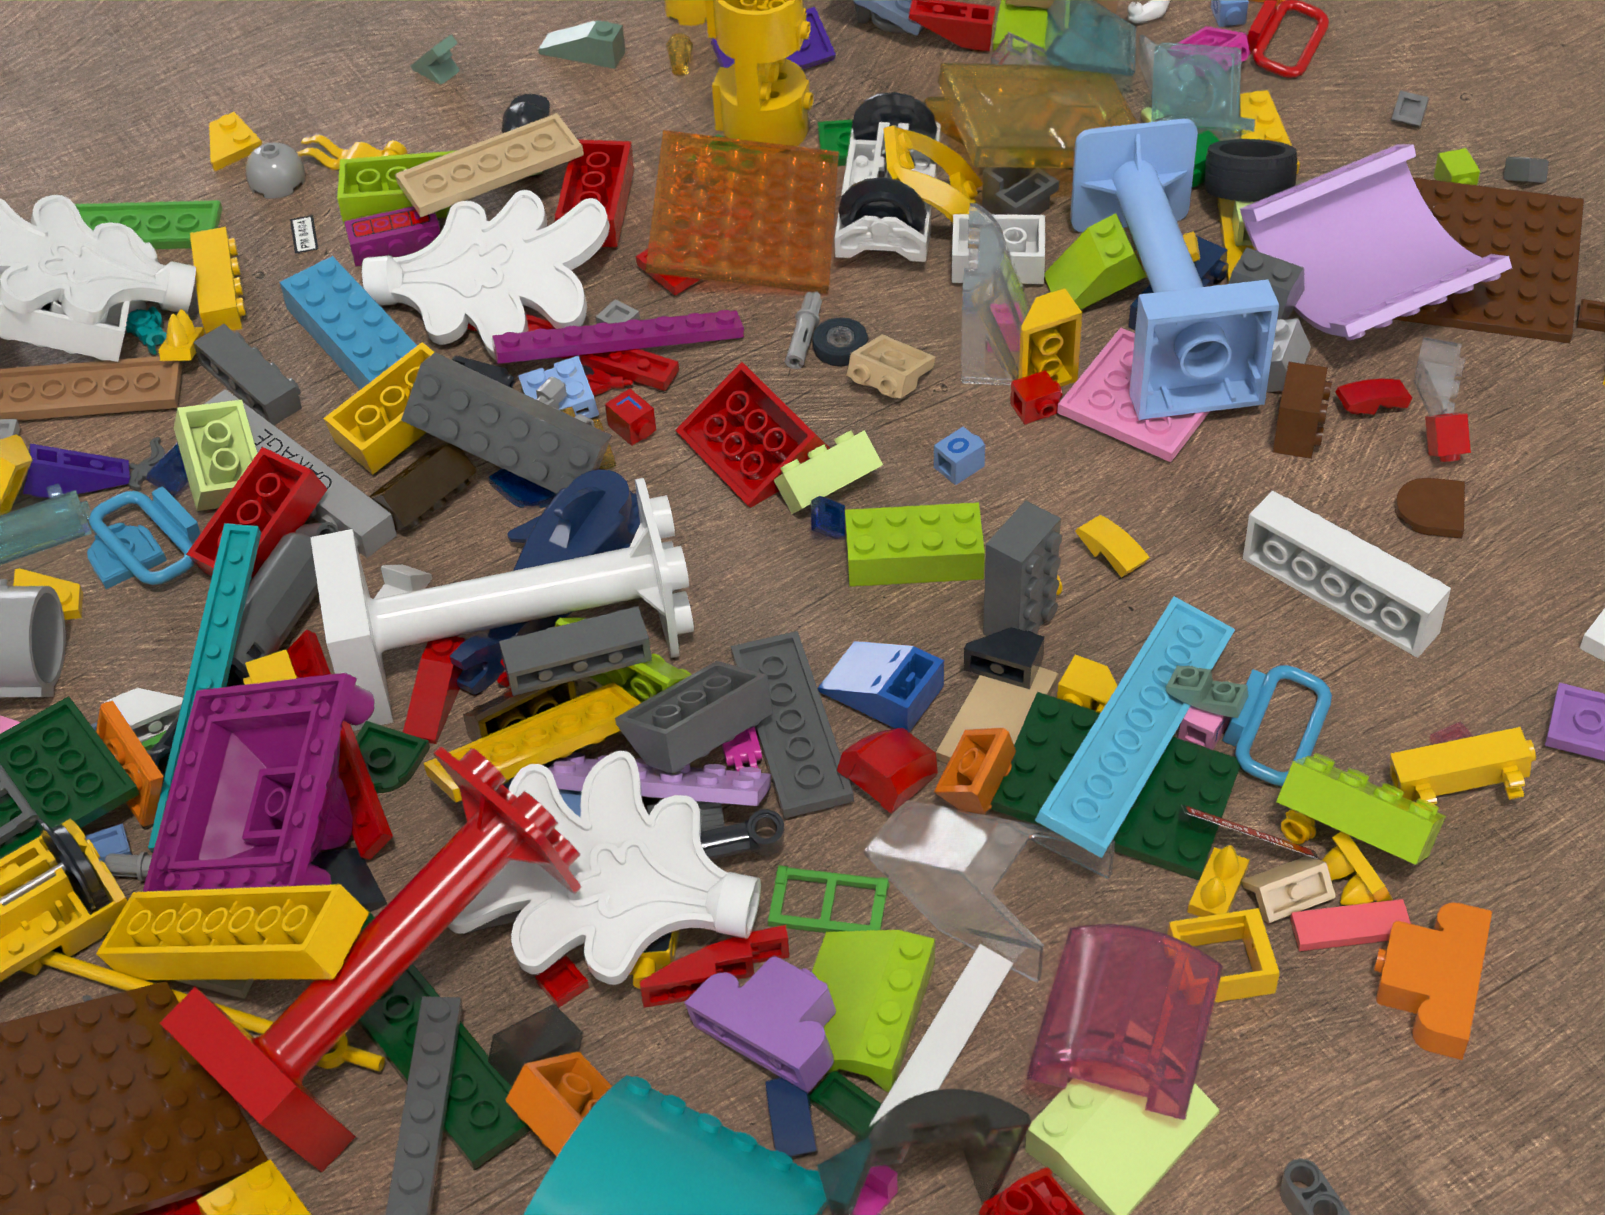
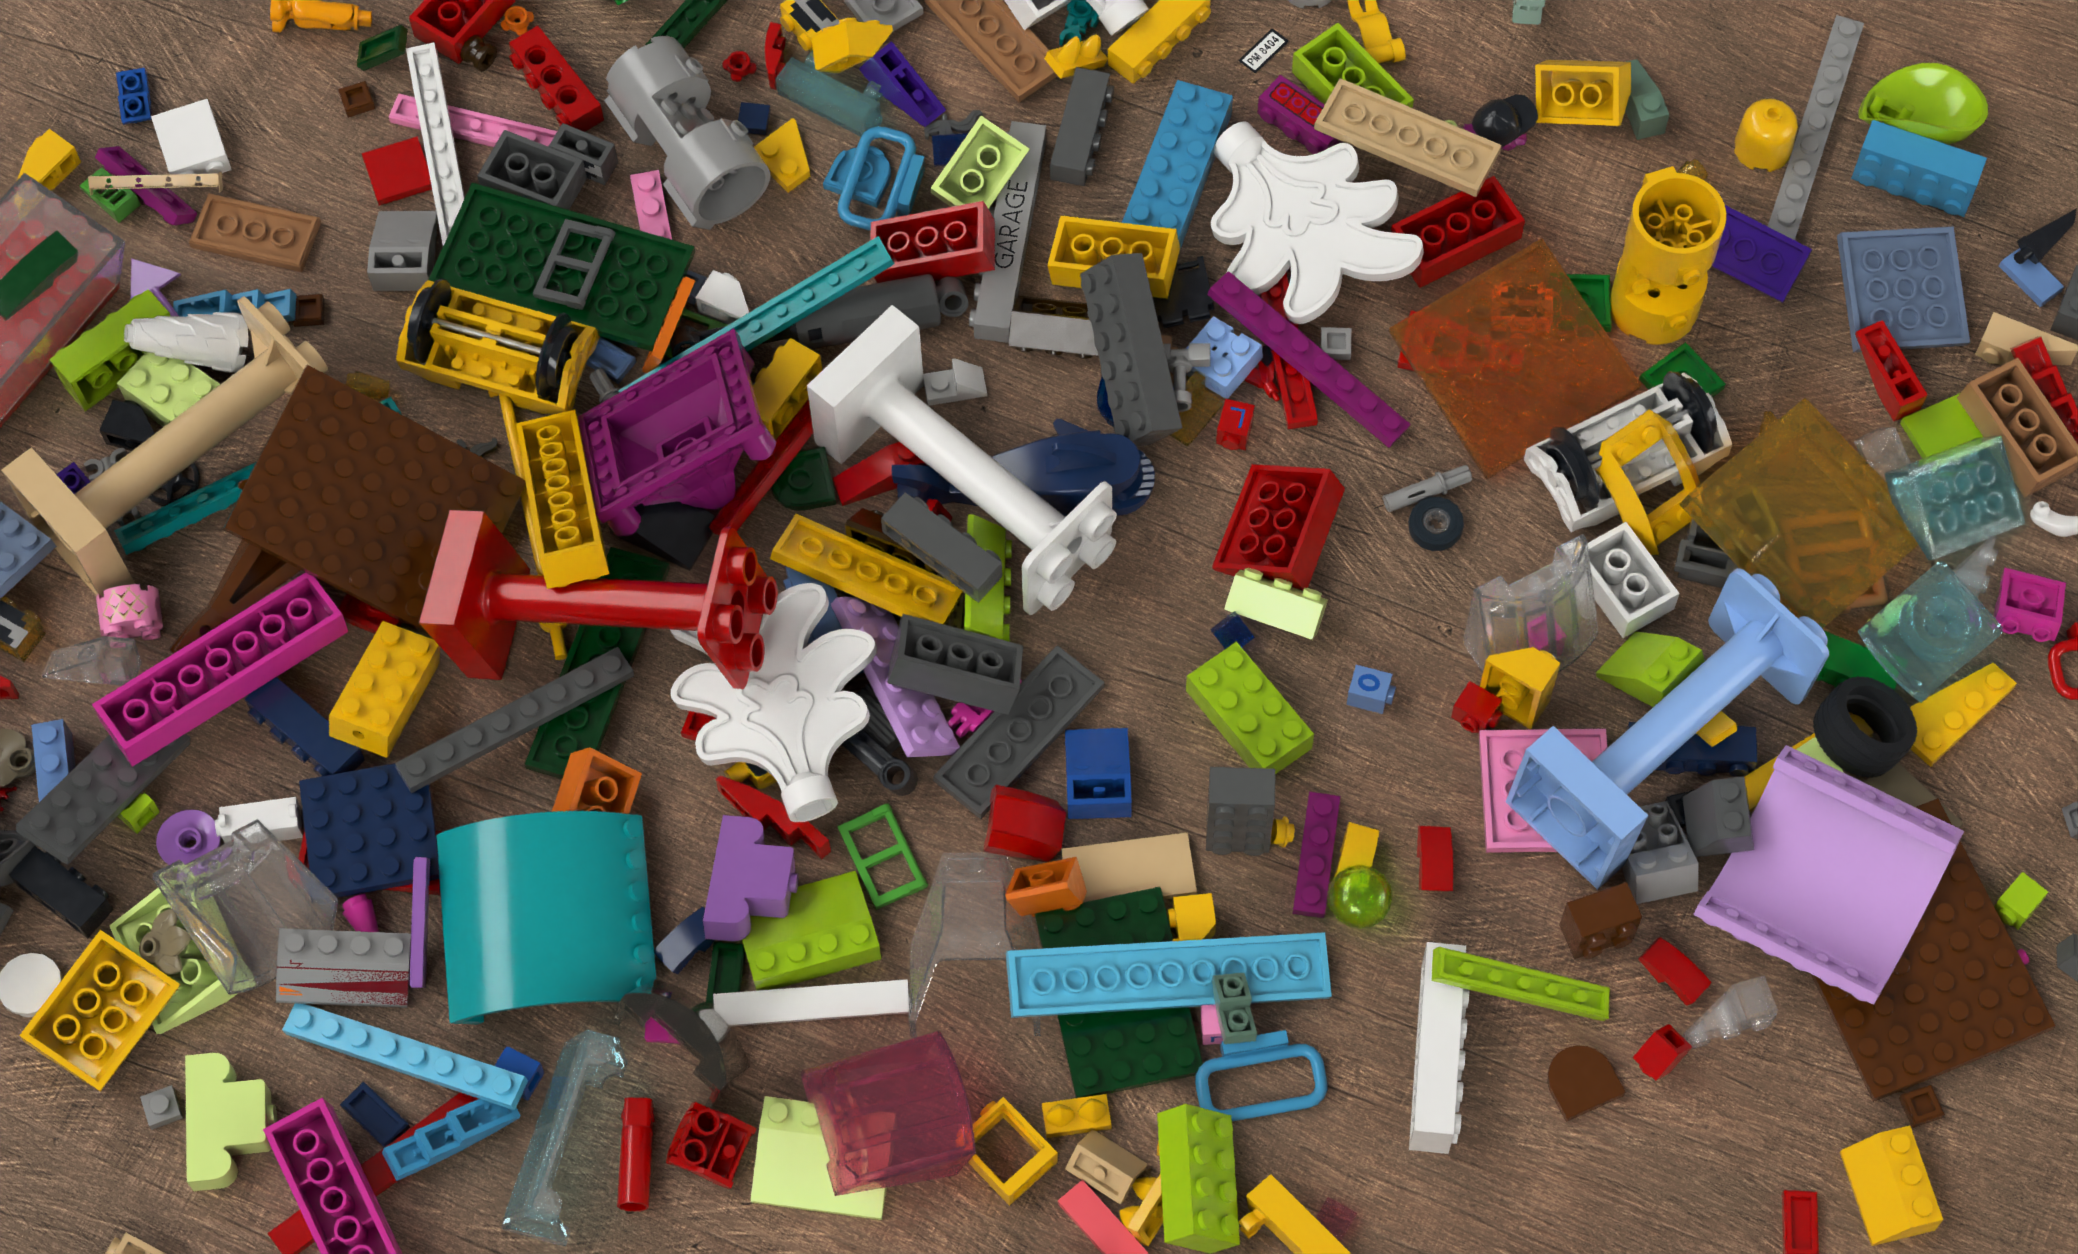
camera: 55 degrees right, 15 degrees up
(533, 1039) = (631, 743): clear smoke brick -> none
(552, 60) = (1582, 92): none -> yellow slope
(889, 366) = (1430, 578): tan plate -> none
(1006, 656) = (1178, 846): black slope -> none
(1100, 583) = (1316, 855): none -> magenta plate
(1143, 487) = (1436, 858): none -> red slope
(1155, 557) = (1356, 910): none -> clear neon green cylinder
(1255, 833) = (1130, 1110): sticker -> none
(1326, 483) = (1520, 984): none -> lime tile

